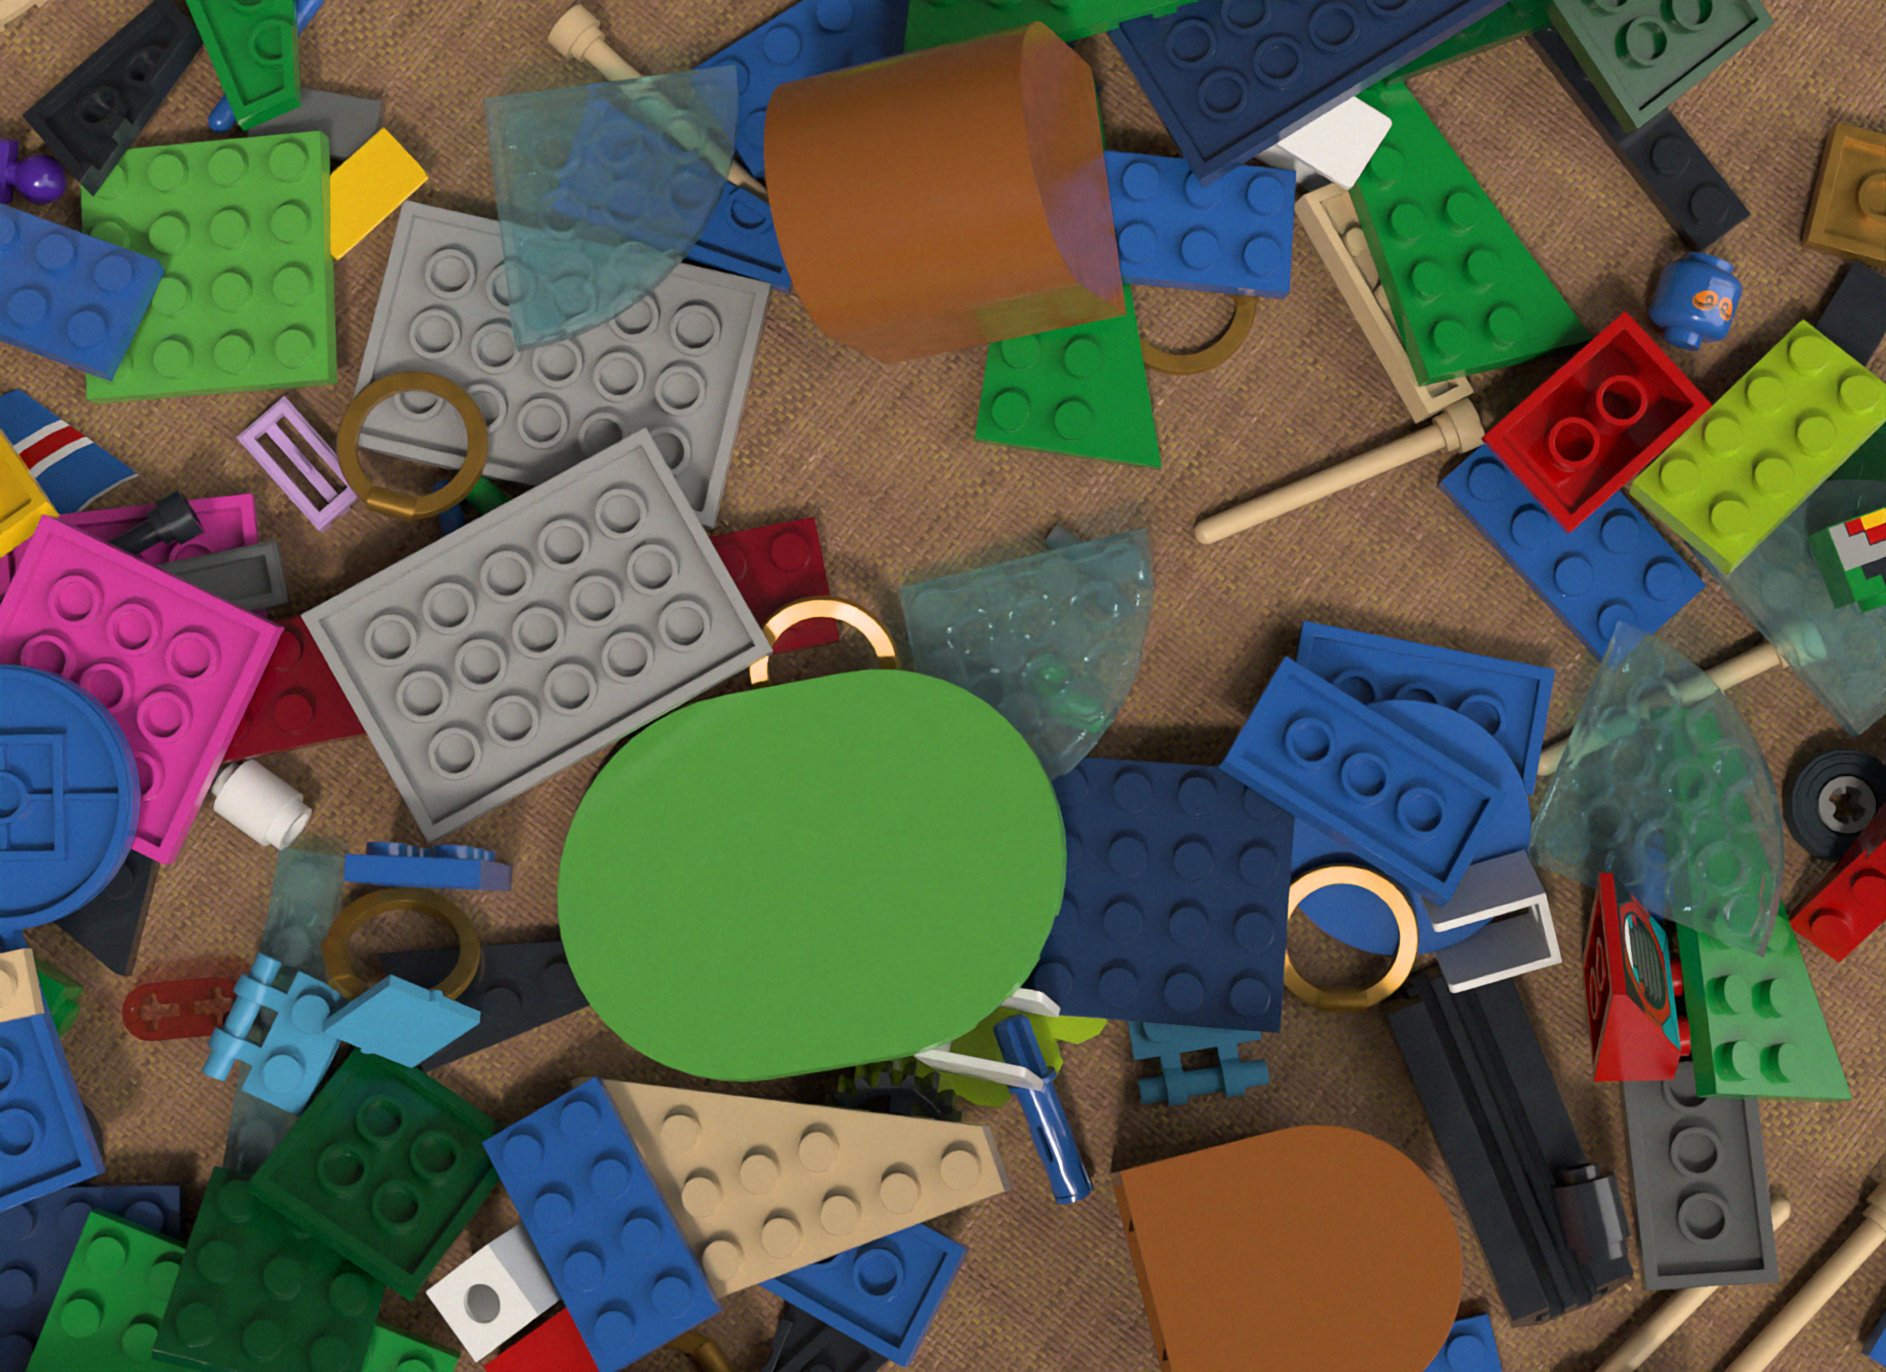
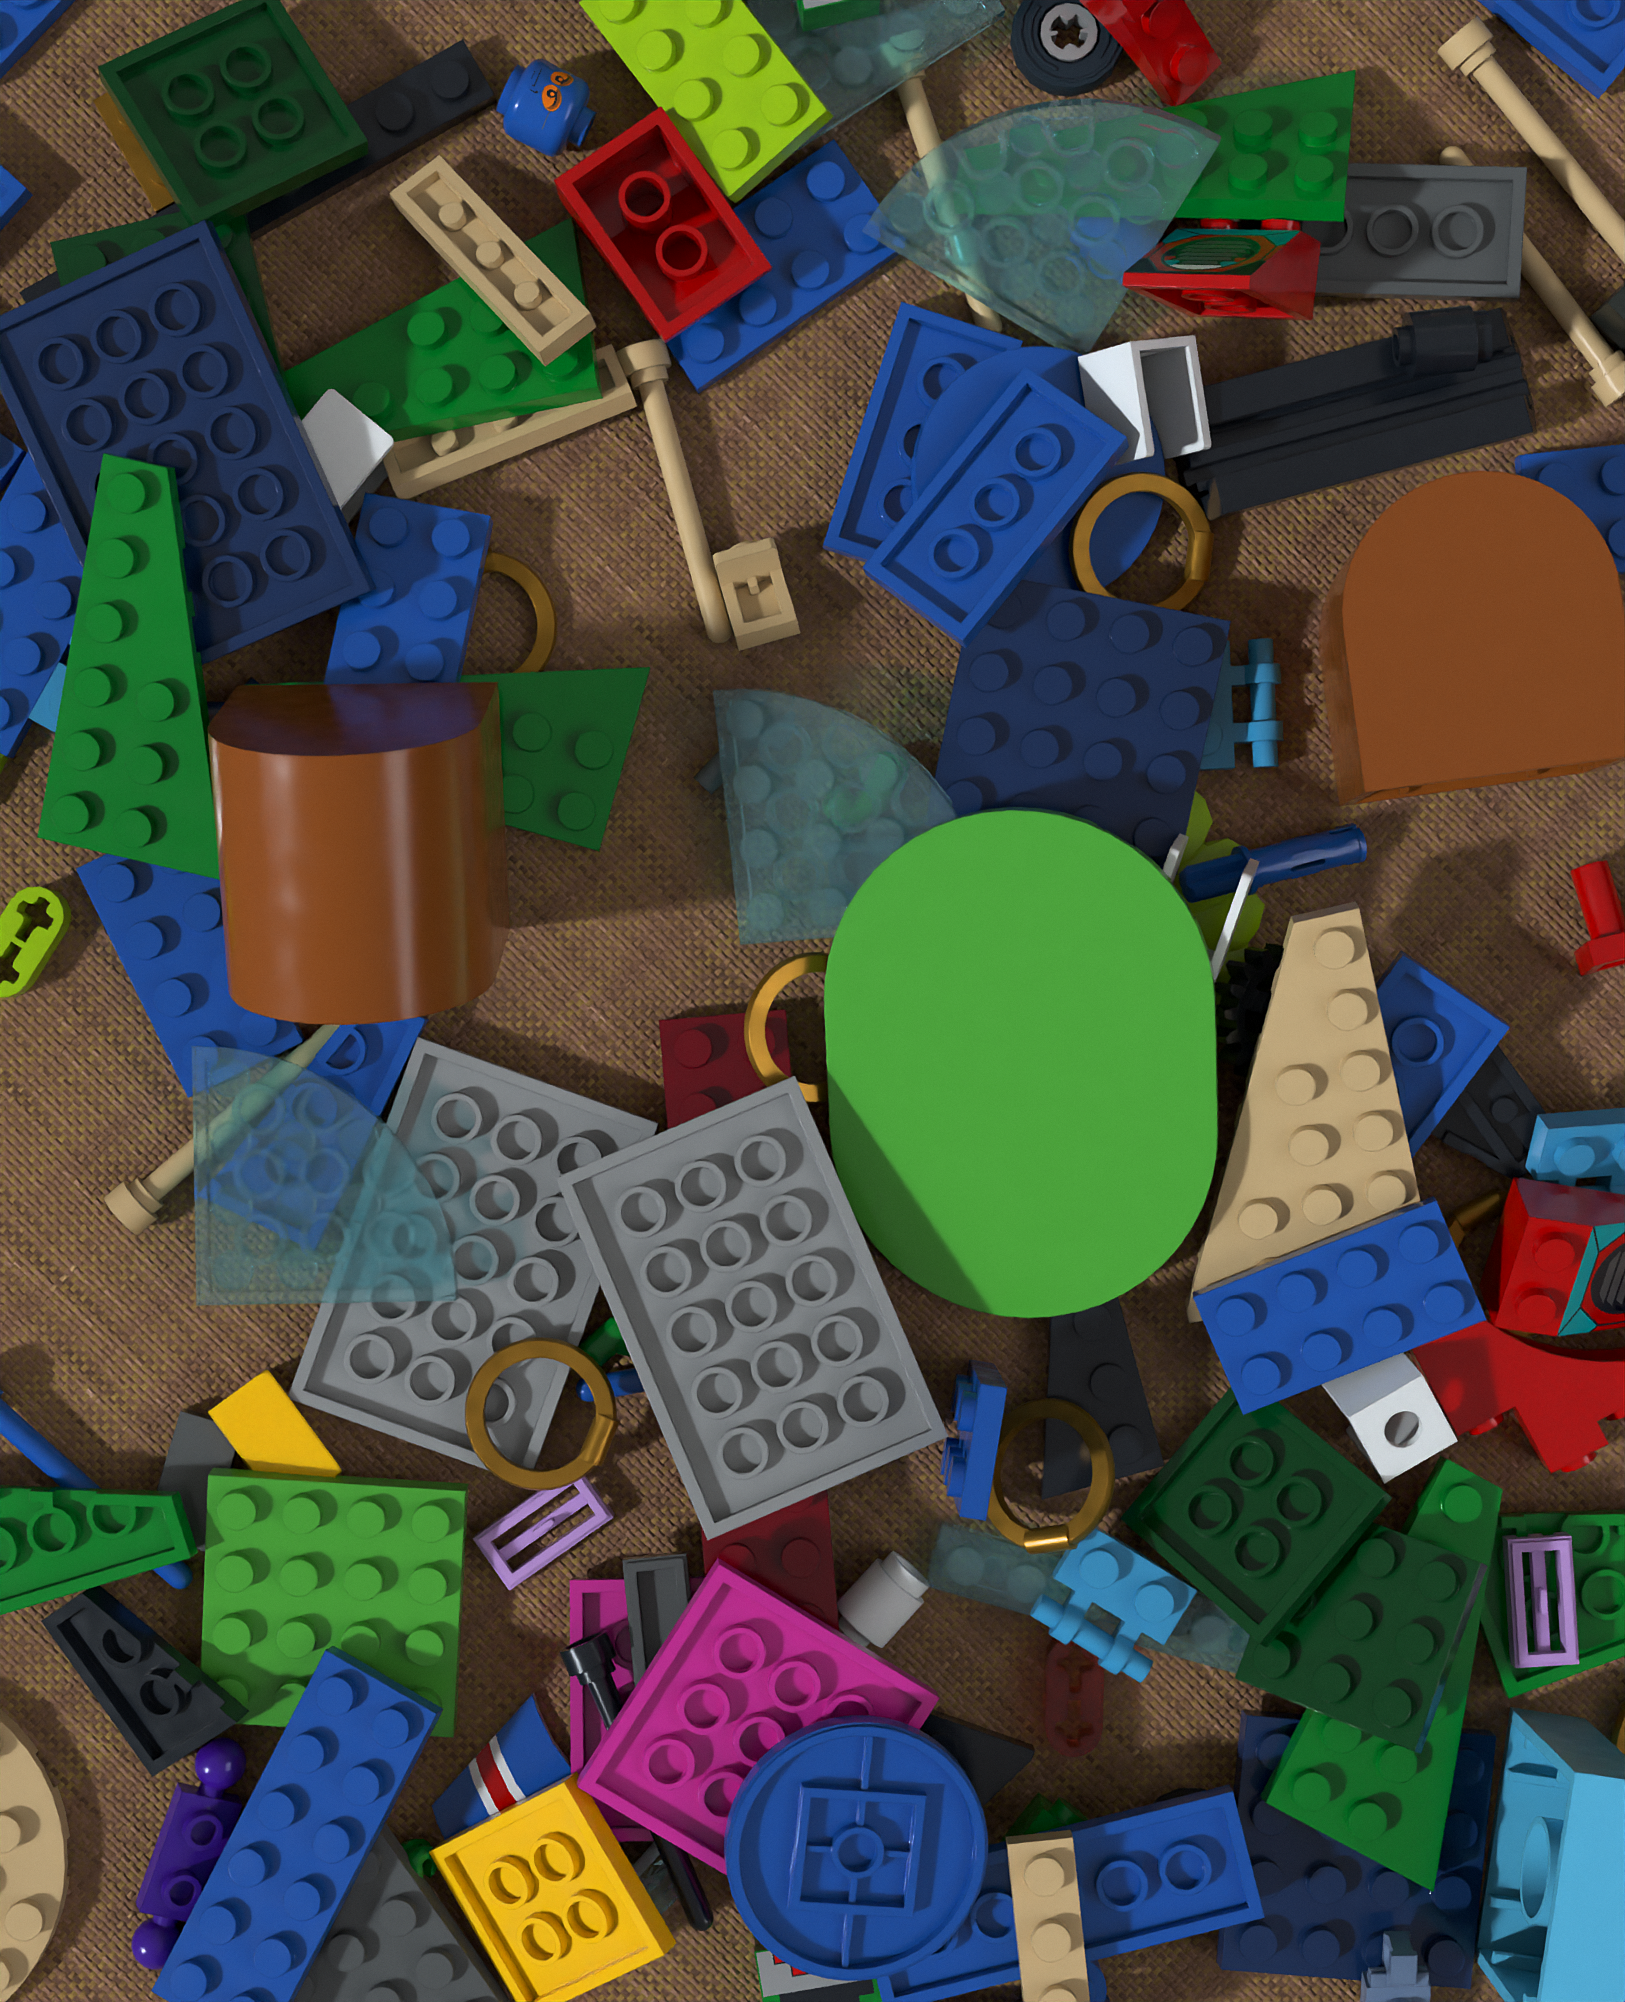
camera: 85 degrees left, 5 degrees up
(401, 1021) = (1118, 1481): dark azure piece -> none
(1247, 560) = (755, 593): none -> tan bracket
(1538, 264) = (493, 260): none -> tan plate

